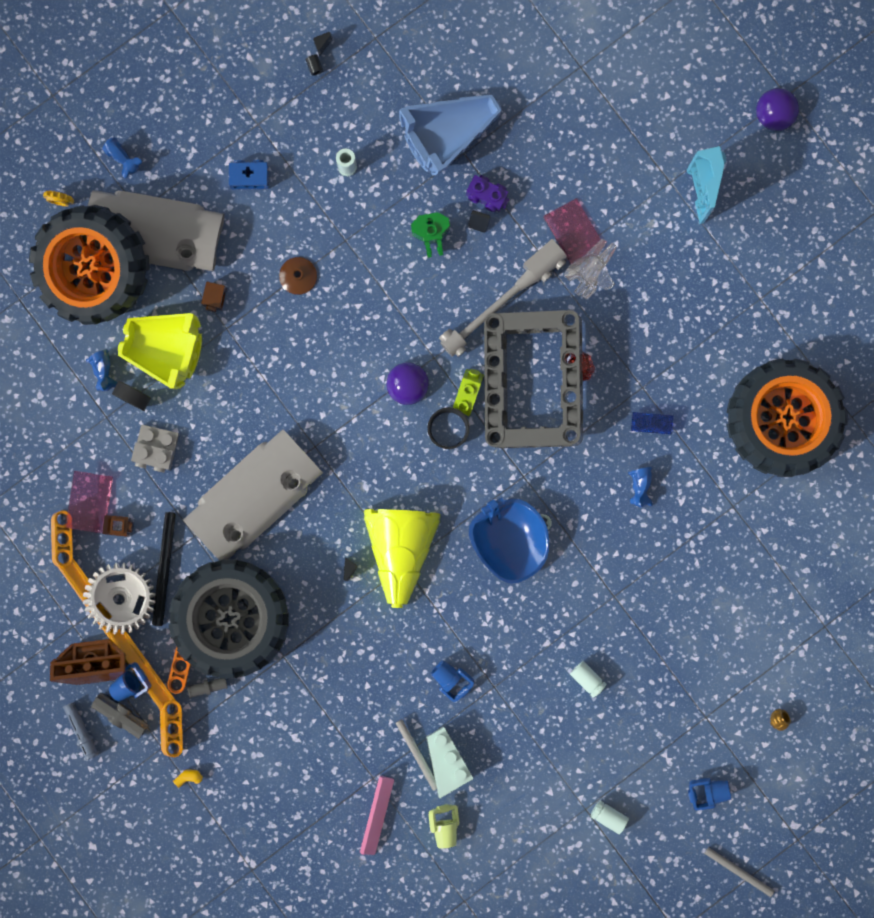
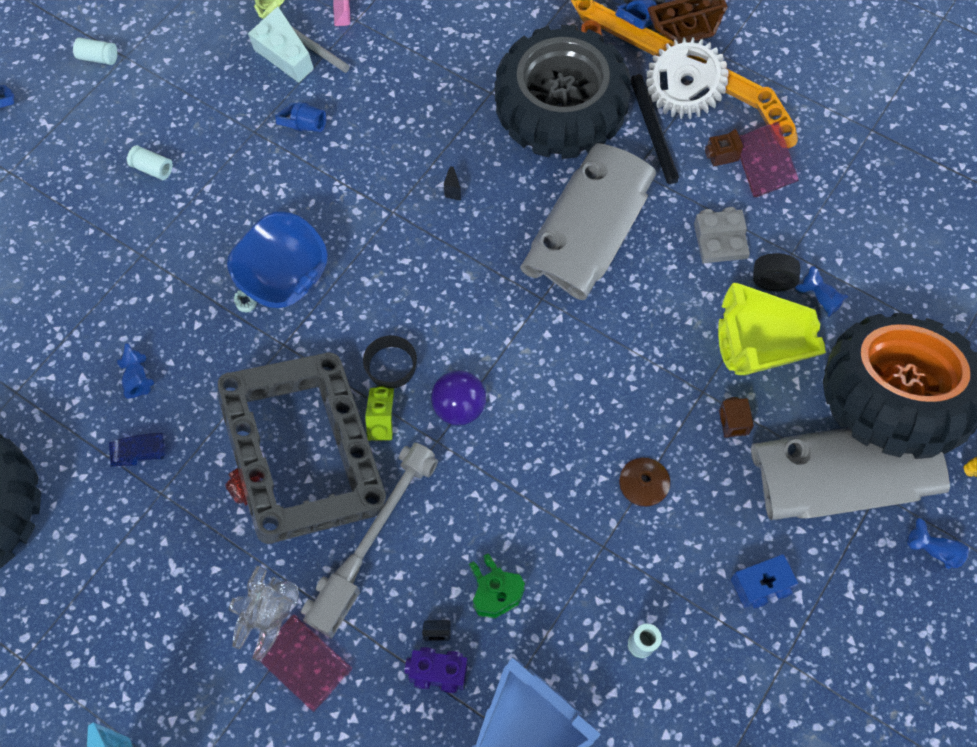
camera: 160 degrees right, 20 degrees down
(400, 548) = (402, 221): neon yellow cone -> none

